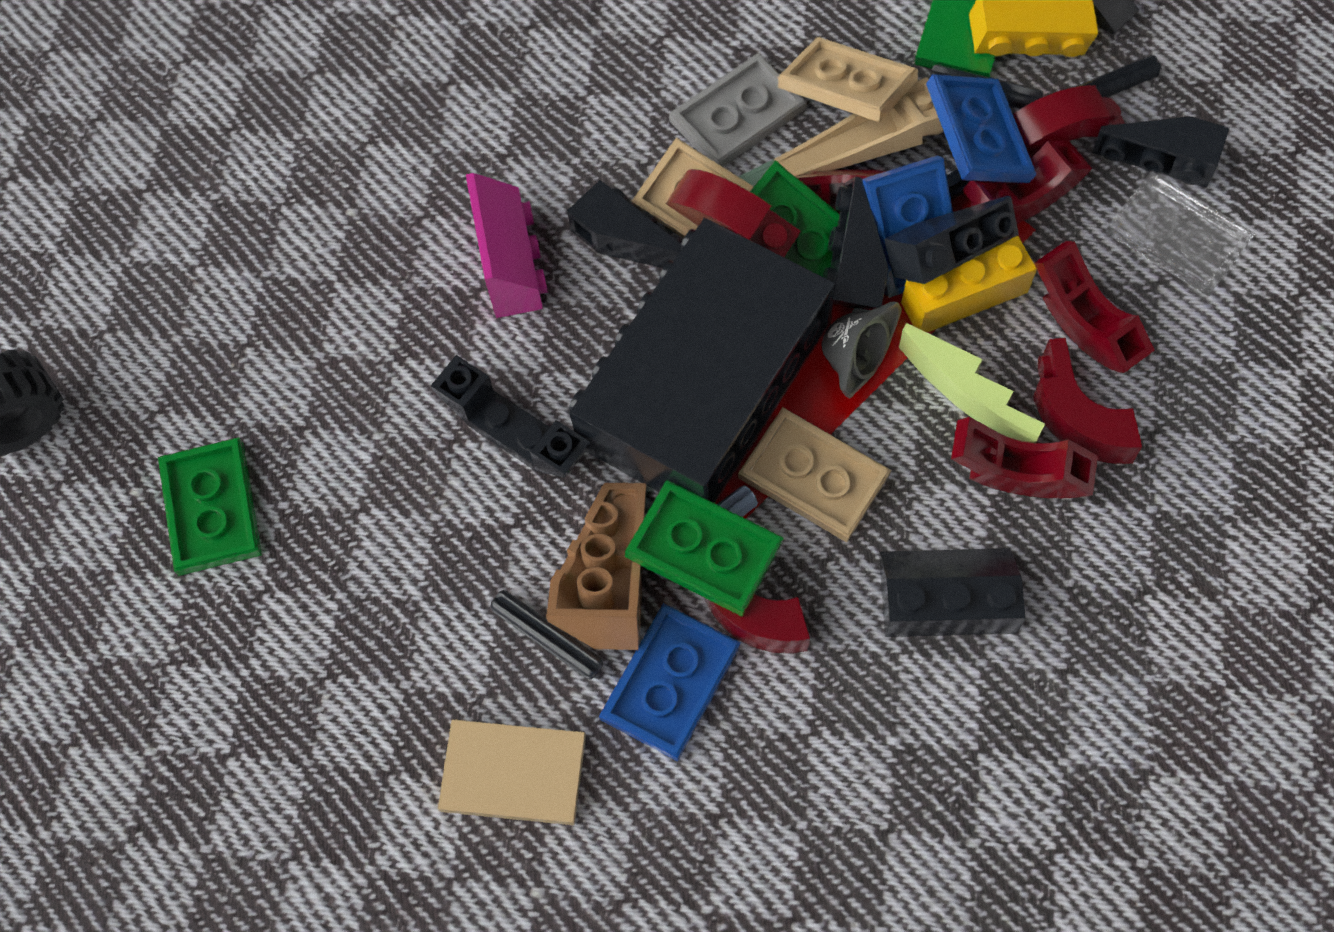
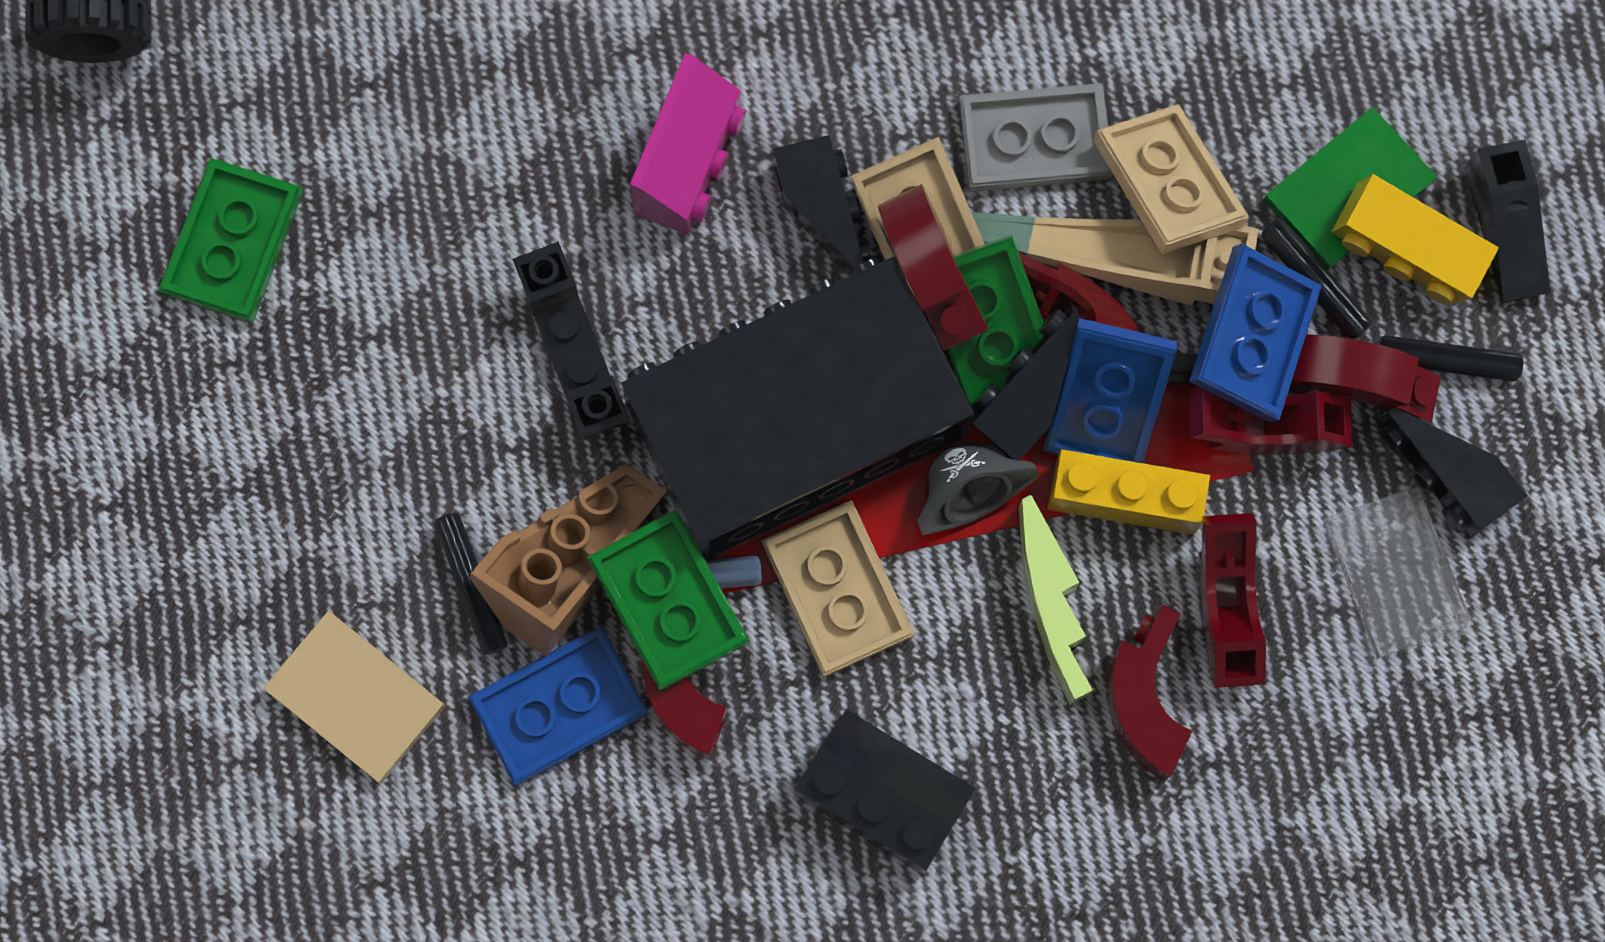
camera: 25 degrees right, 10 degrees up
(950, 240) = (1133, 438): black slope -> none
(1023, 467) = (1043, 714): dark red arch -> none

